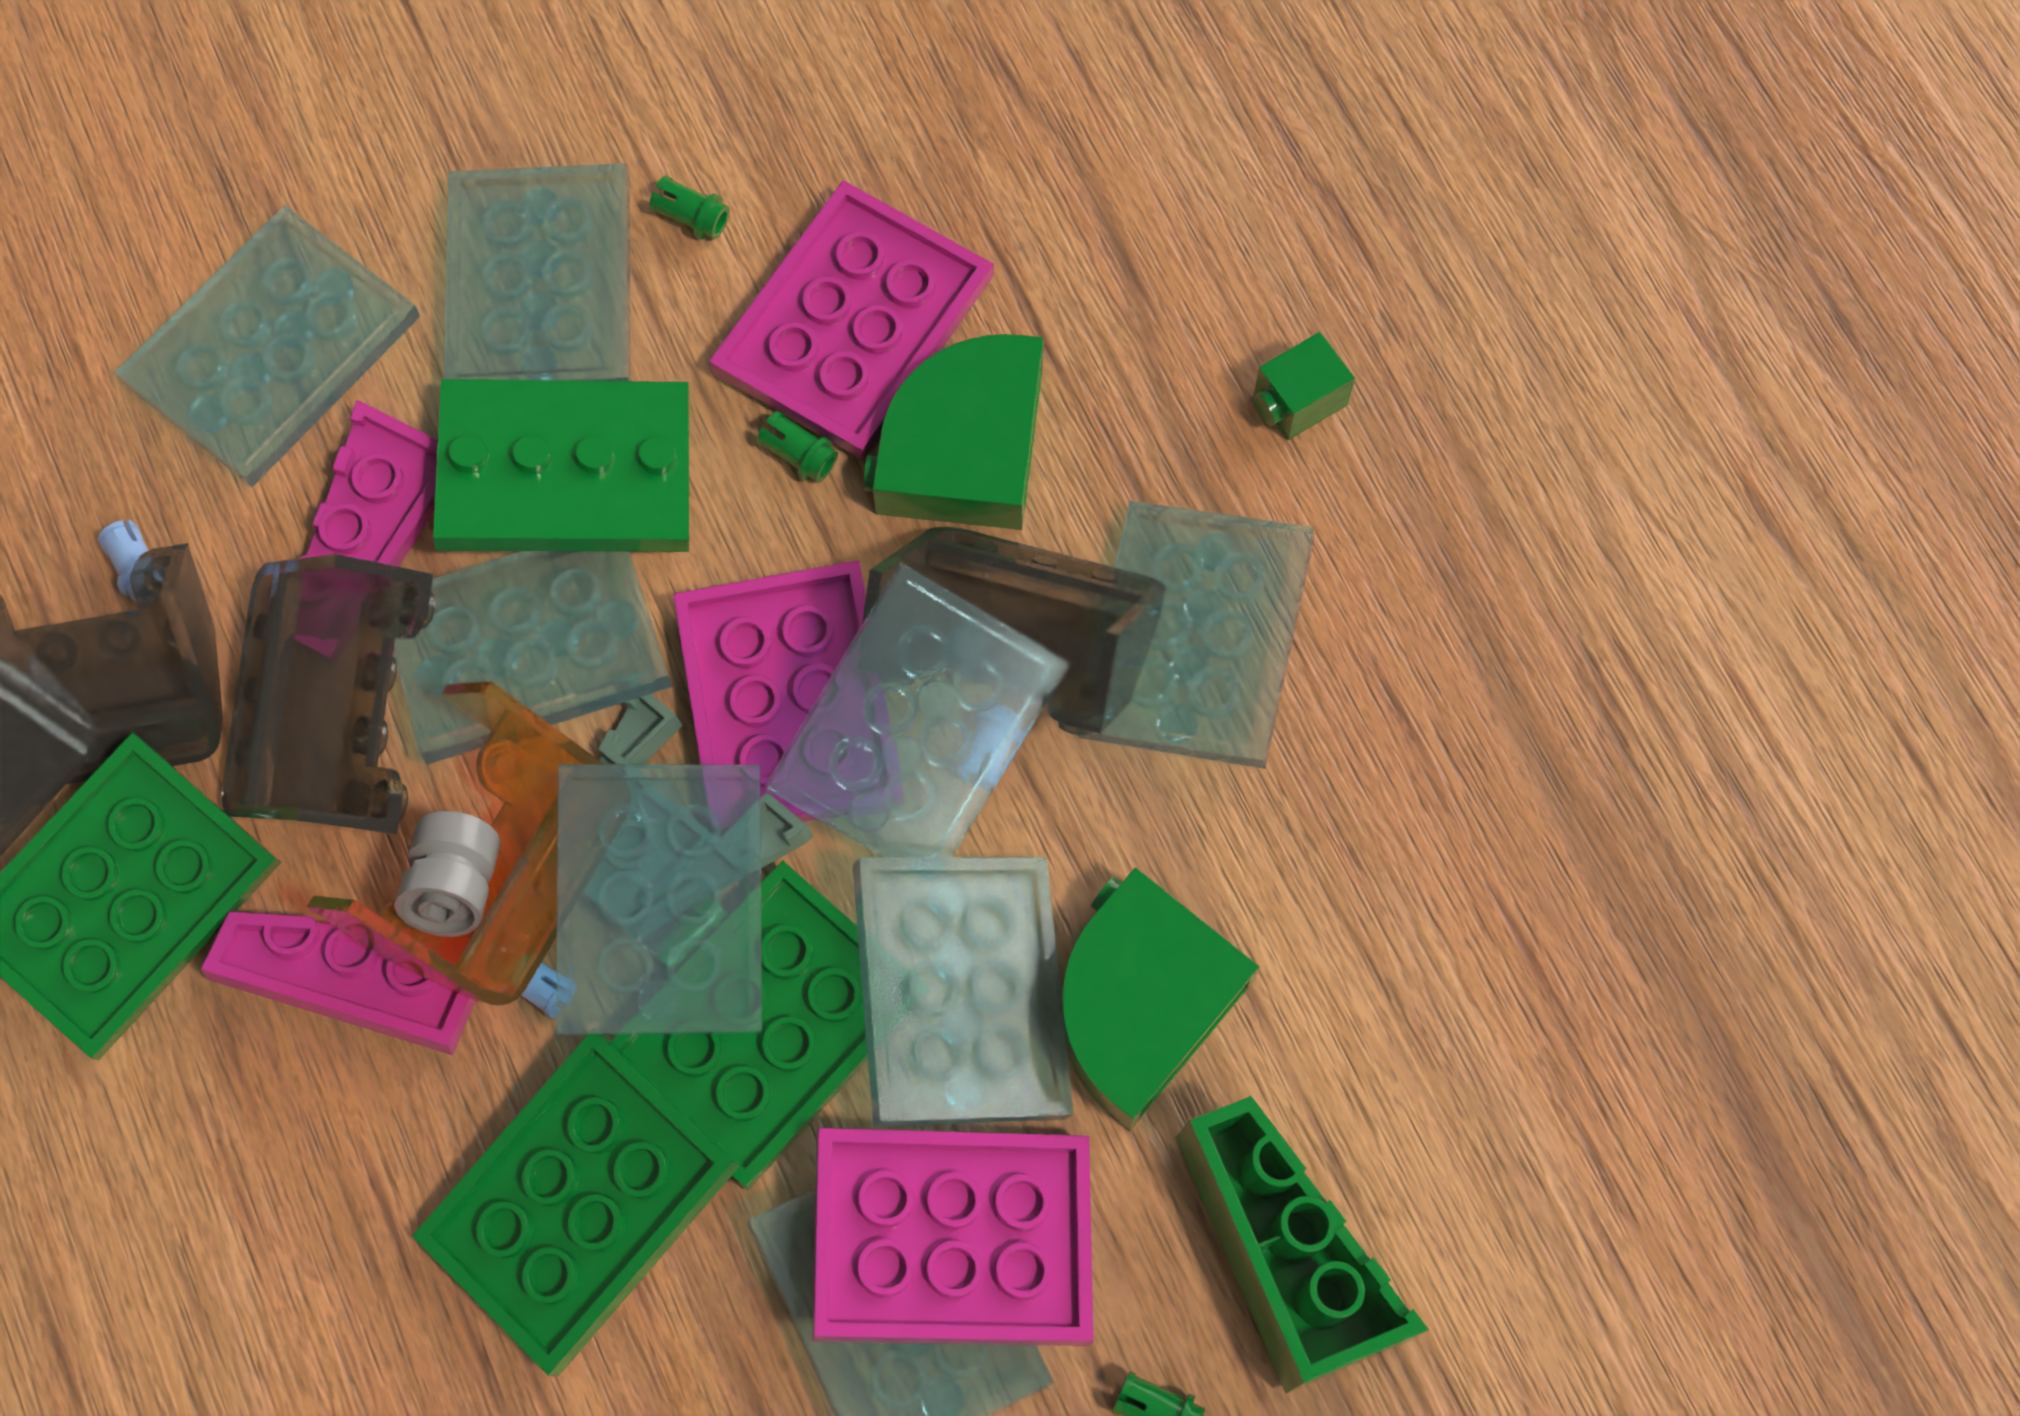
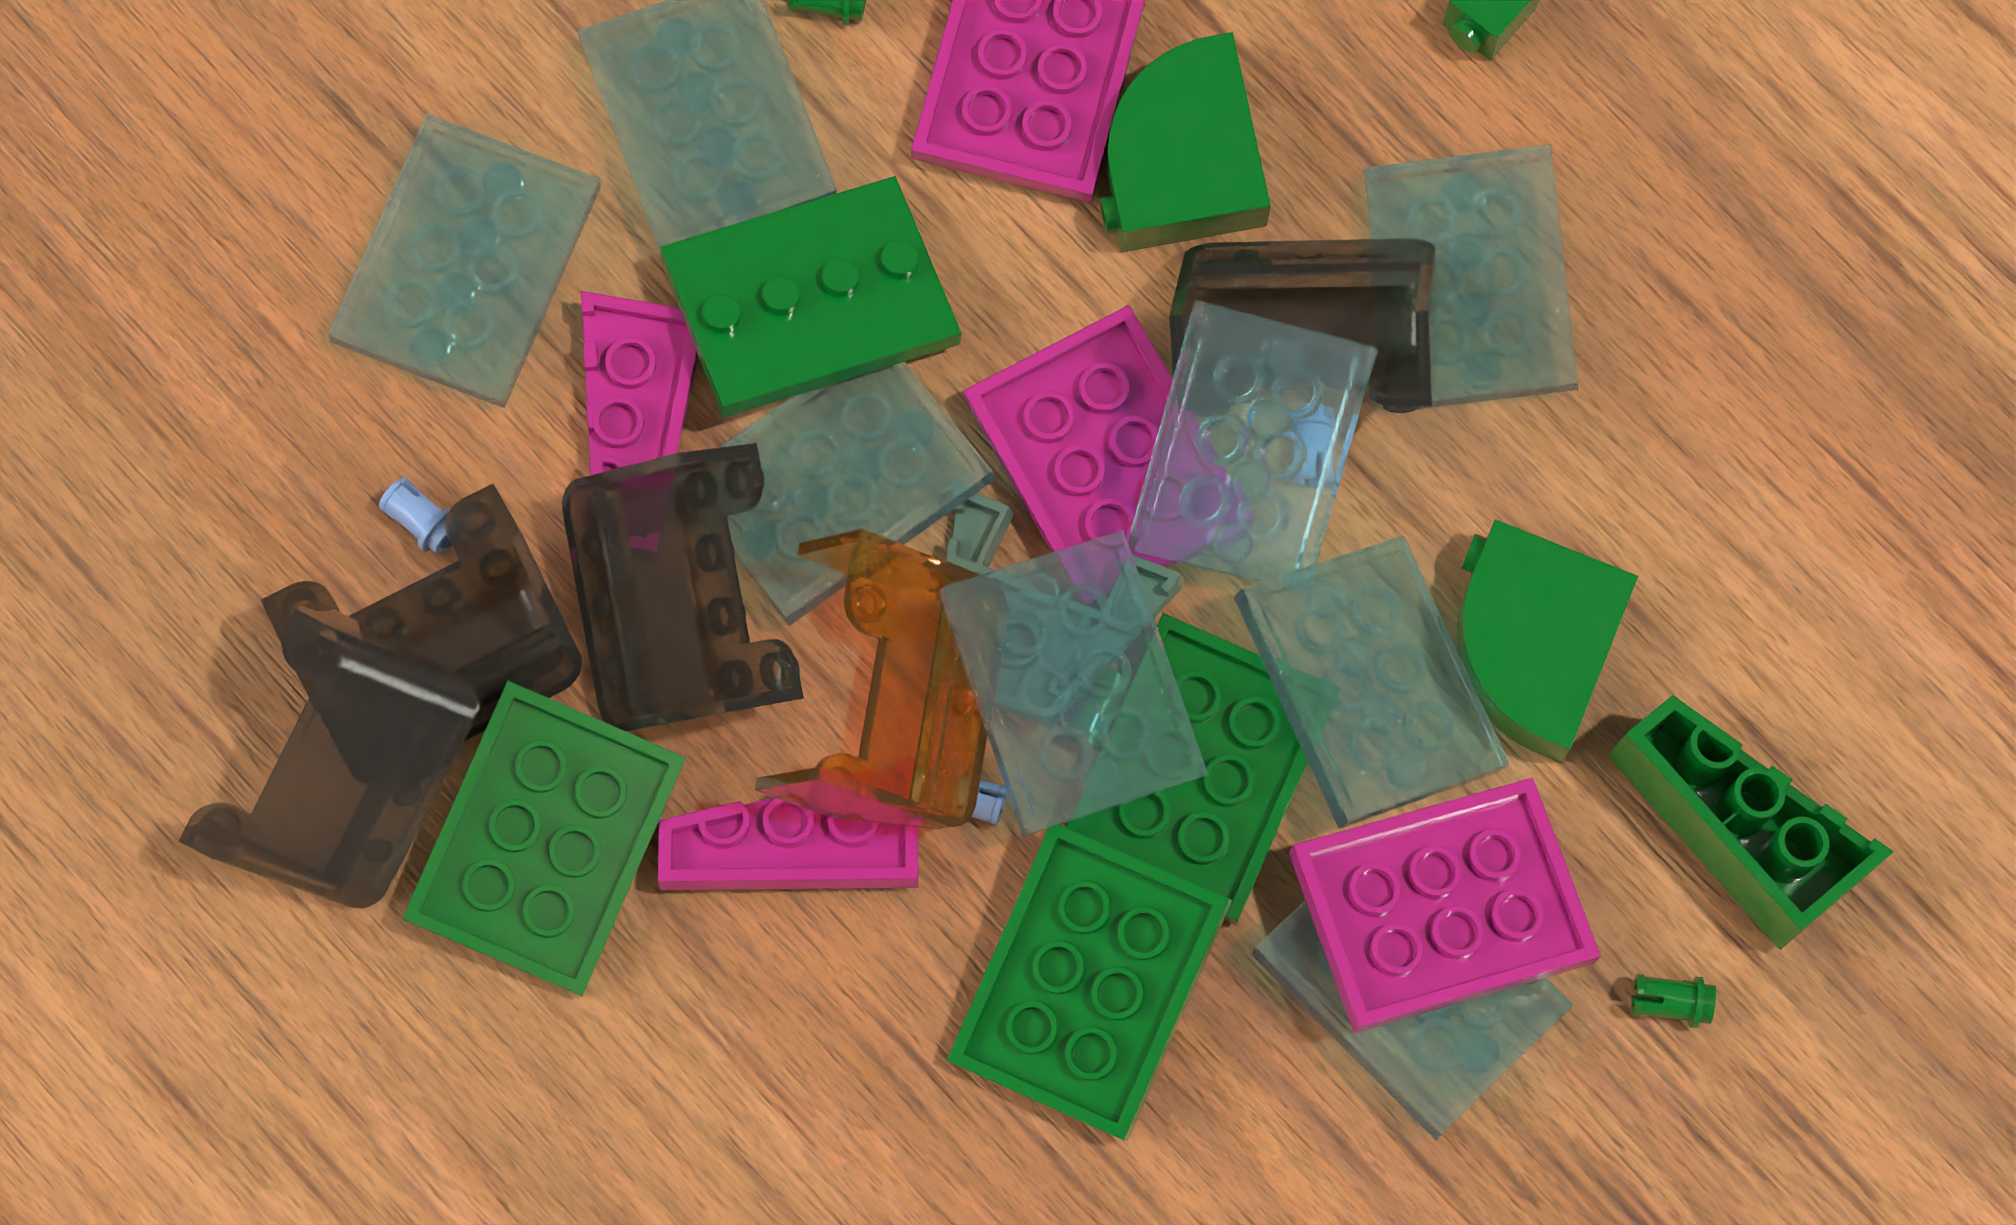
camera: 20 degrees left, 5 degrees up
(447, 874) = (867, 719): light grey wheel -> none
(799, 448) = (1030, 209): green pin -> none

